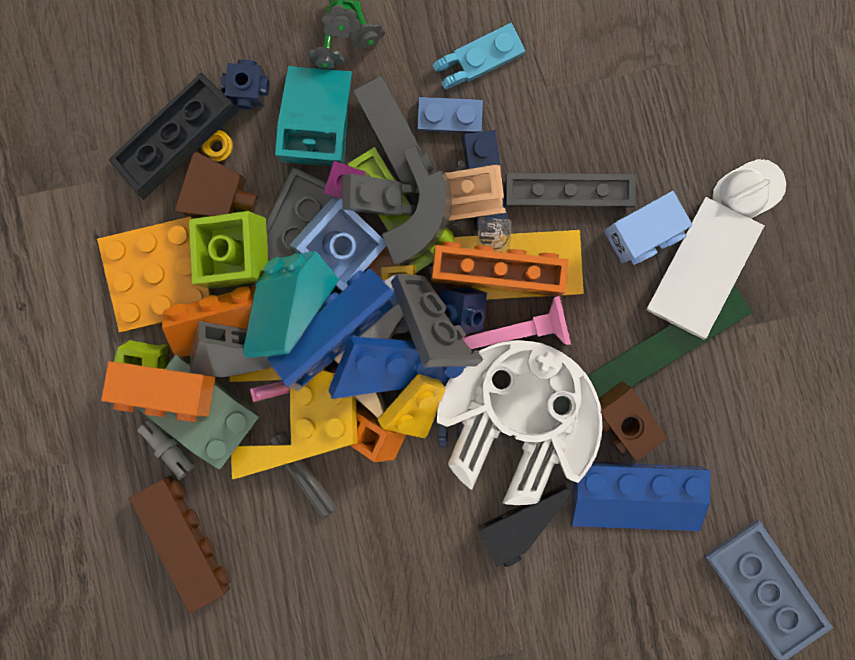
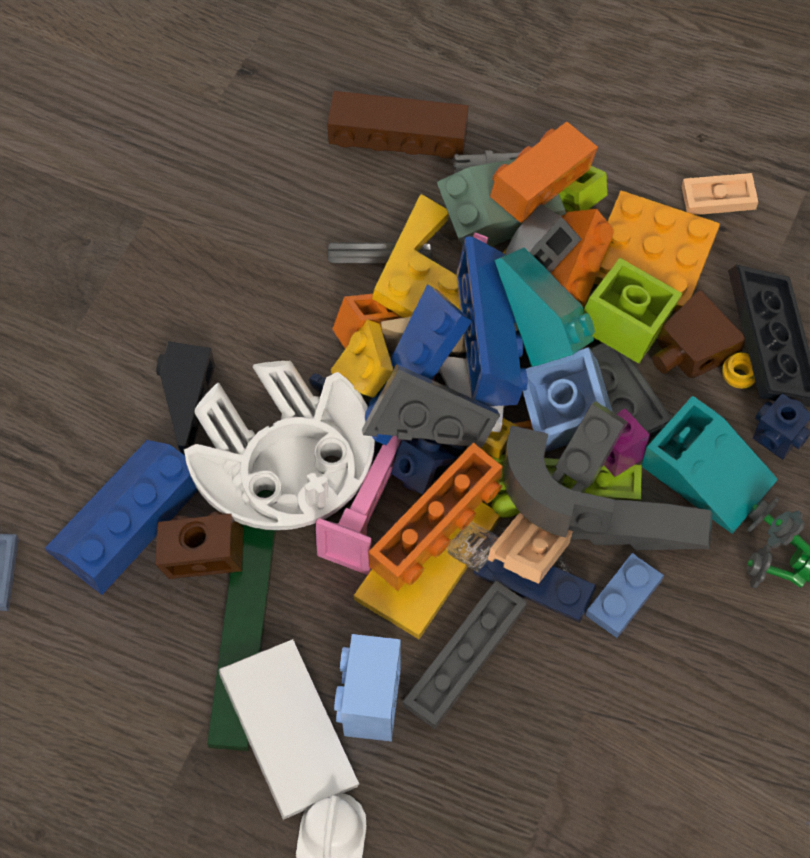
camera: 130 degrees right, 25 degrees down
(69, 255) = (719, 194): none -> light nougat plate
(481, 56) = (665, 667): medium azure hinge -> none

